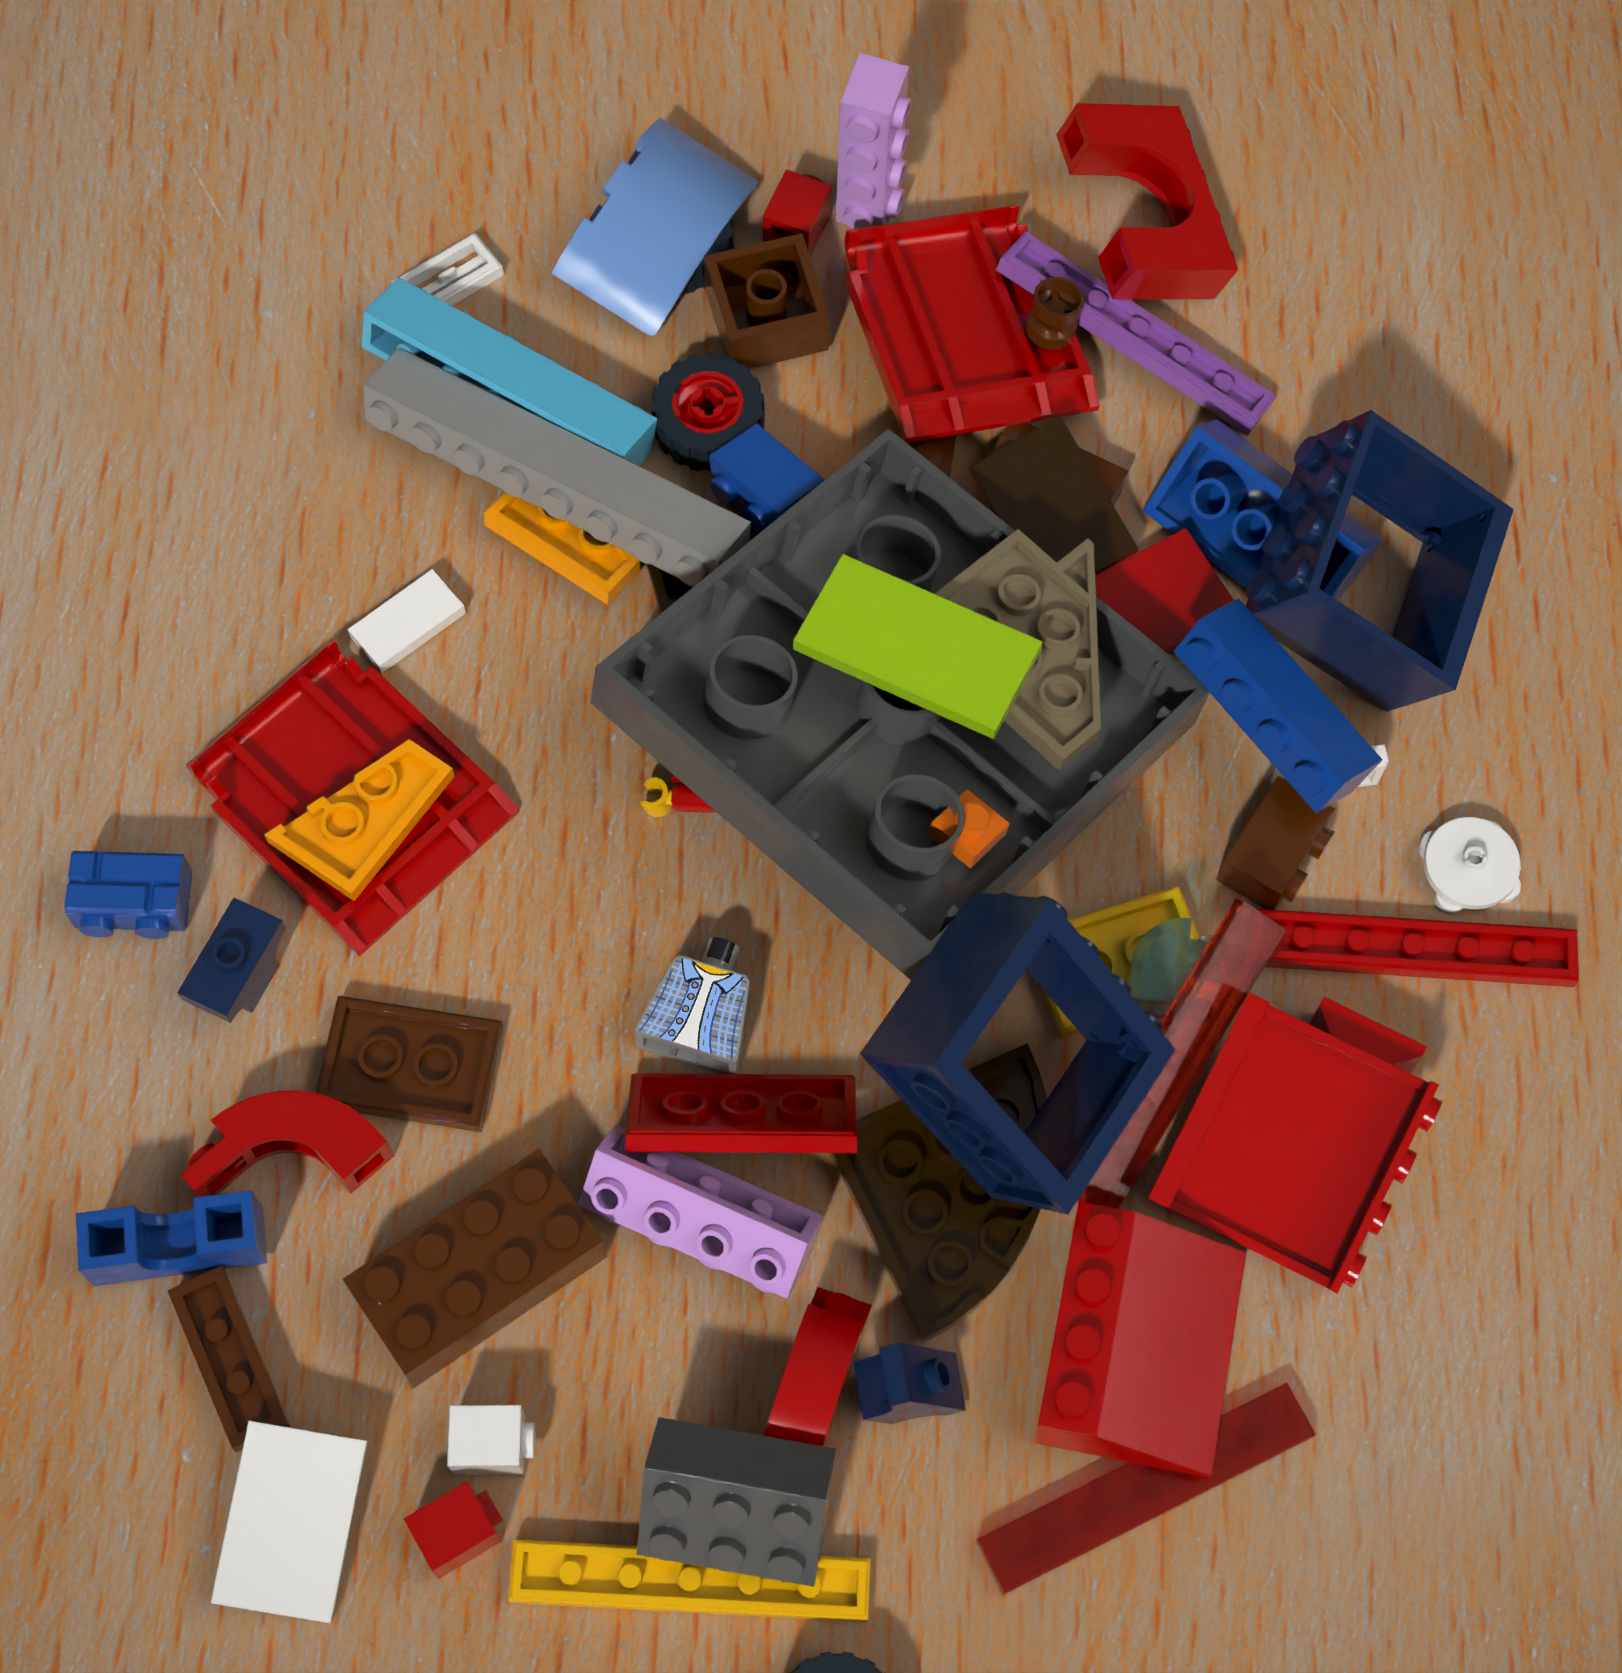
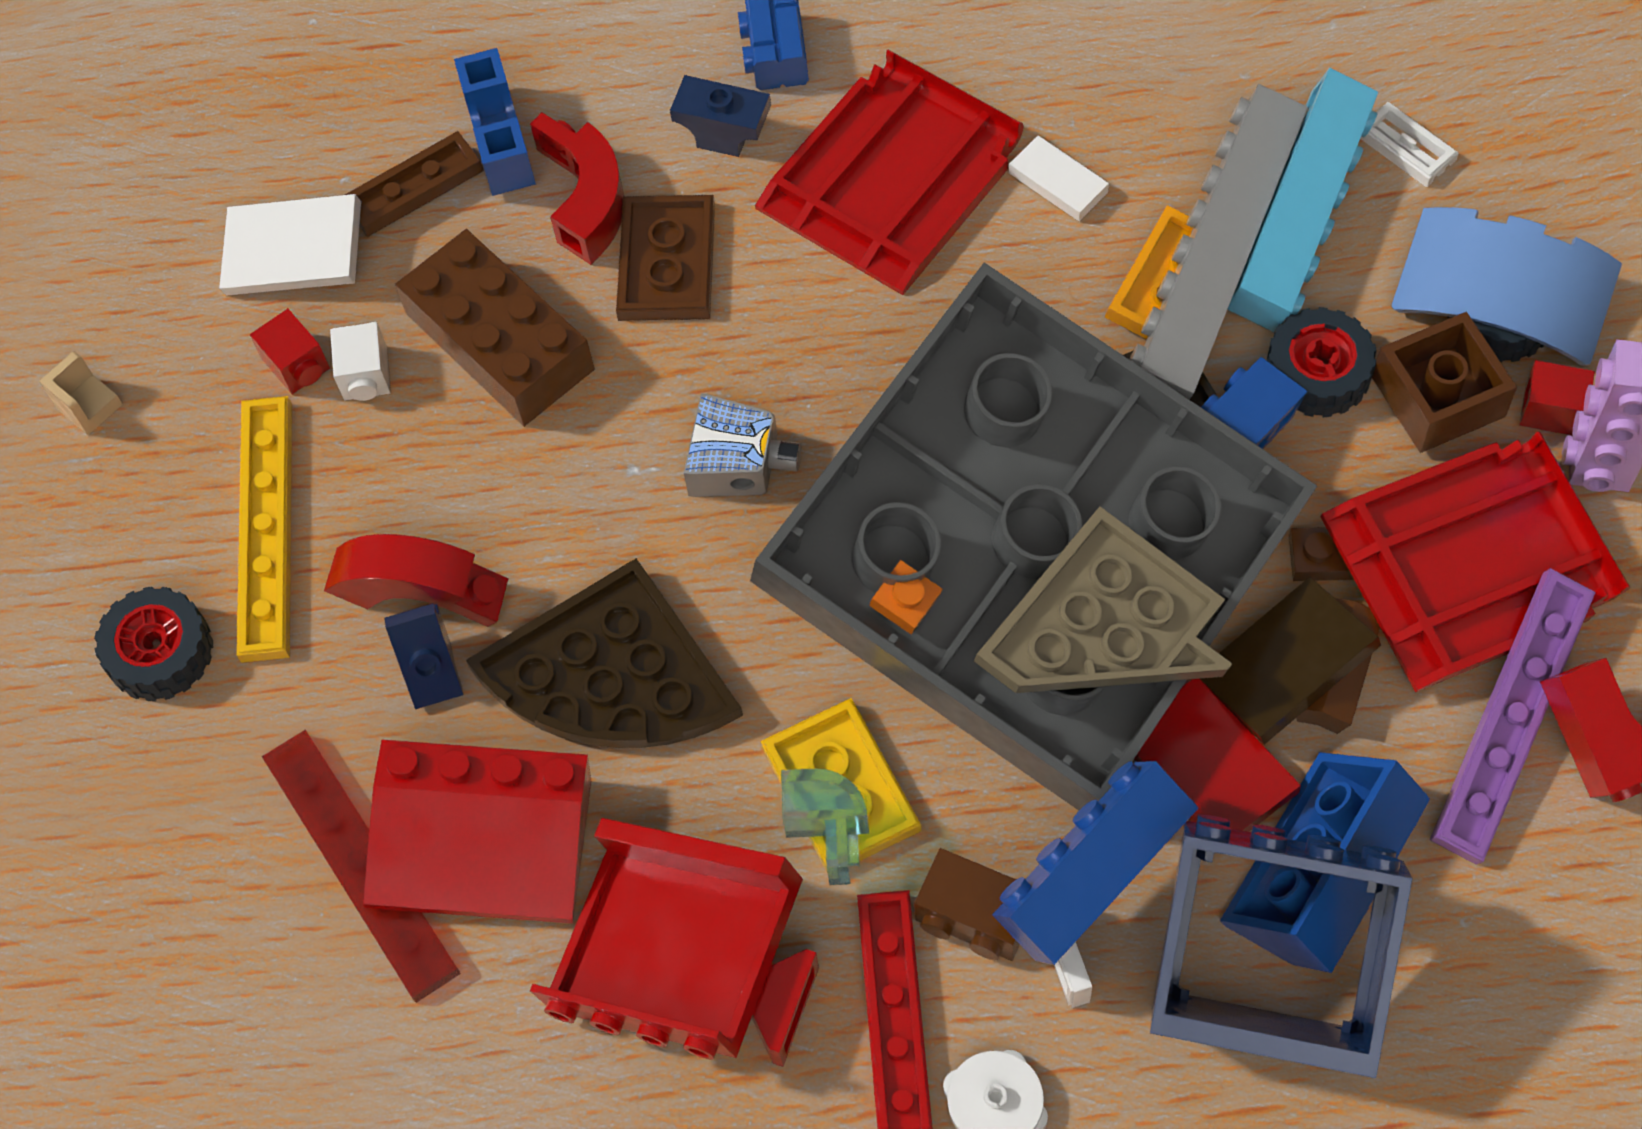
camera: 90 degrees right, 5 degrees down
(366, 821) = (857, 174): light orange wing -> none
(702, 1213) = (554, 473): lavender brick -> none
(735, 1501) = (308, 527): dark grey brick -> none
(742, 1113) = (643, 490): red tile -> none
(917, 646) = (1065, 516): lime tile -> none
(954, 999) = (721, 575): dark blue window -> none
(1054, 313) = (1499, 610): reddish brown wheel -> none
(1194, 1029) = (734, 819): clear red tile -> none

